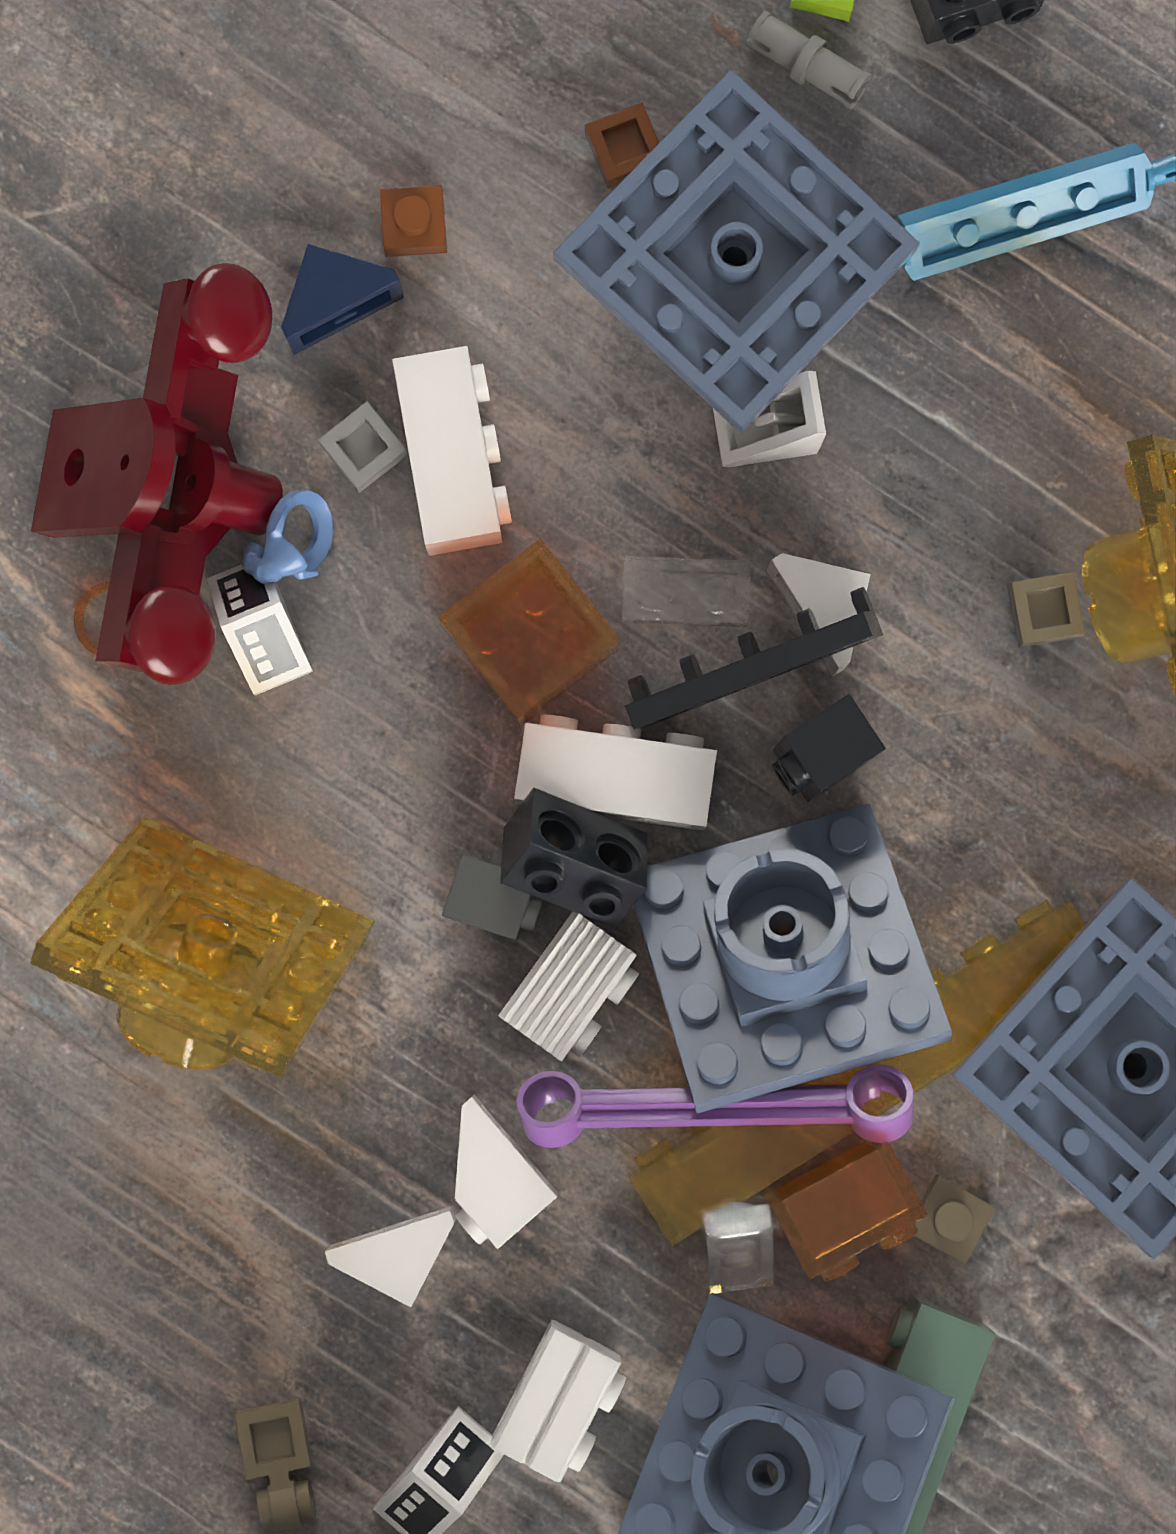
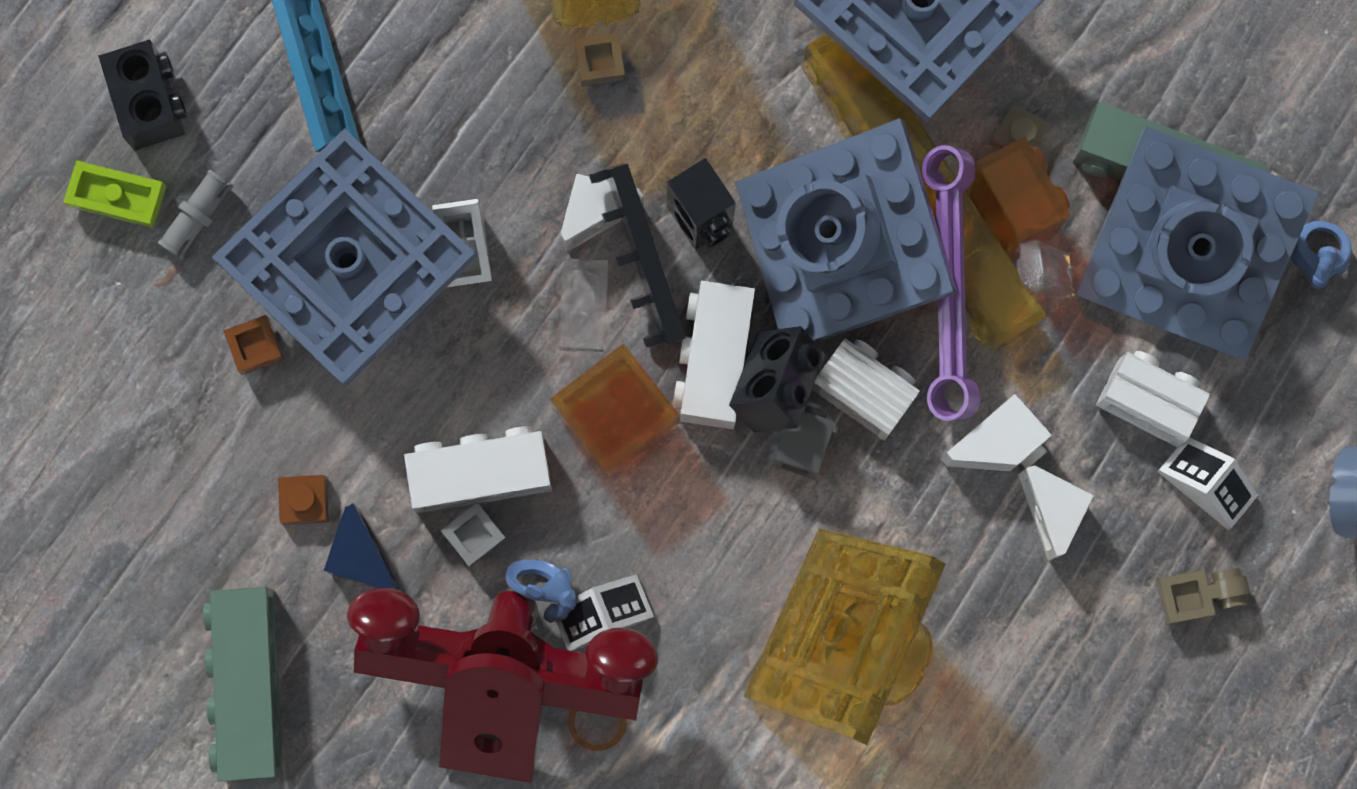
camera: 90 degrees left, 5 degrees down
(161, 150) = (244, 684): none -> sand green brick

